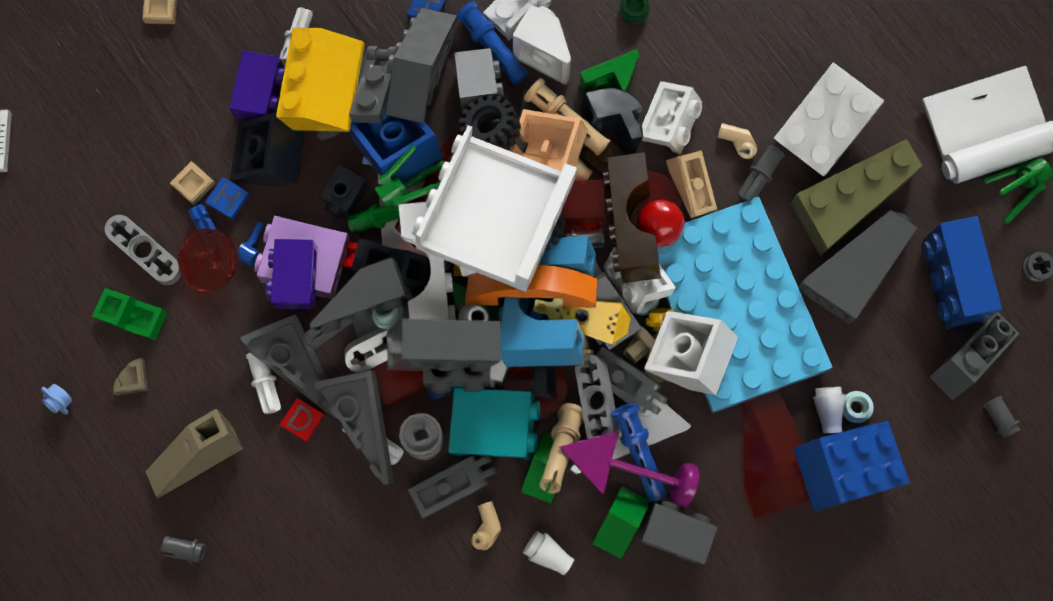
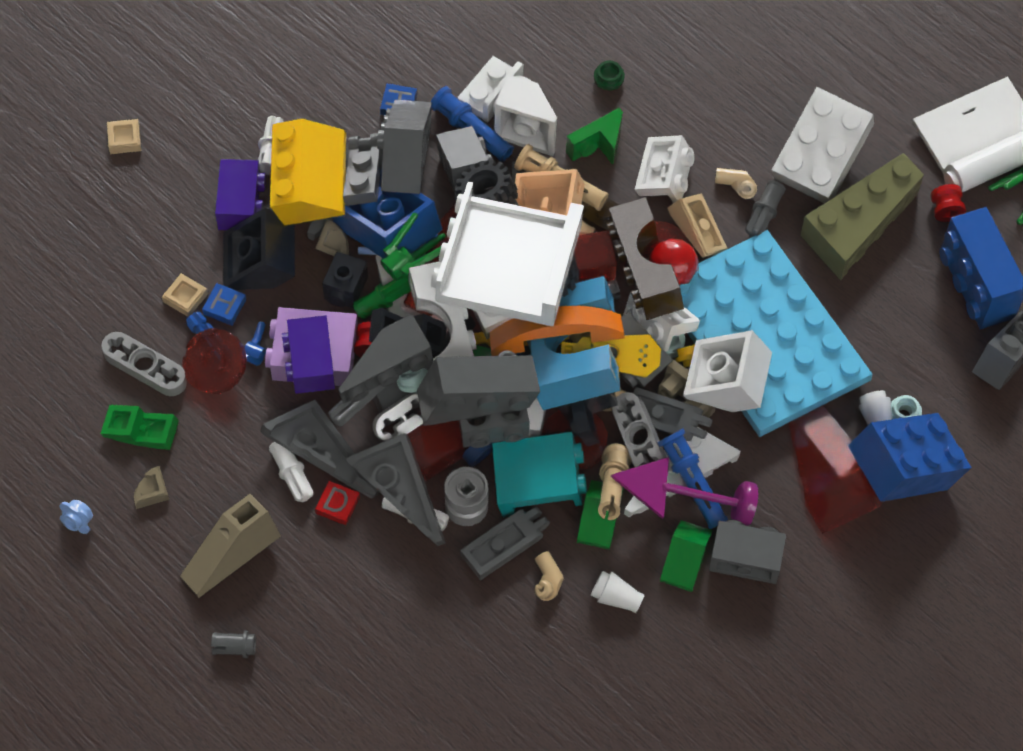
camera: 10 degrees left, 15 degrees down
(340, 149) = (332, 239): none -> dark tan tile
(614, 111) = (609, 170): black brick -> none
(855, 272) = (878, 282): dark grey slope -> none
(940, 193) = (947, 202): none -> red wheel

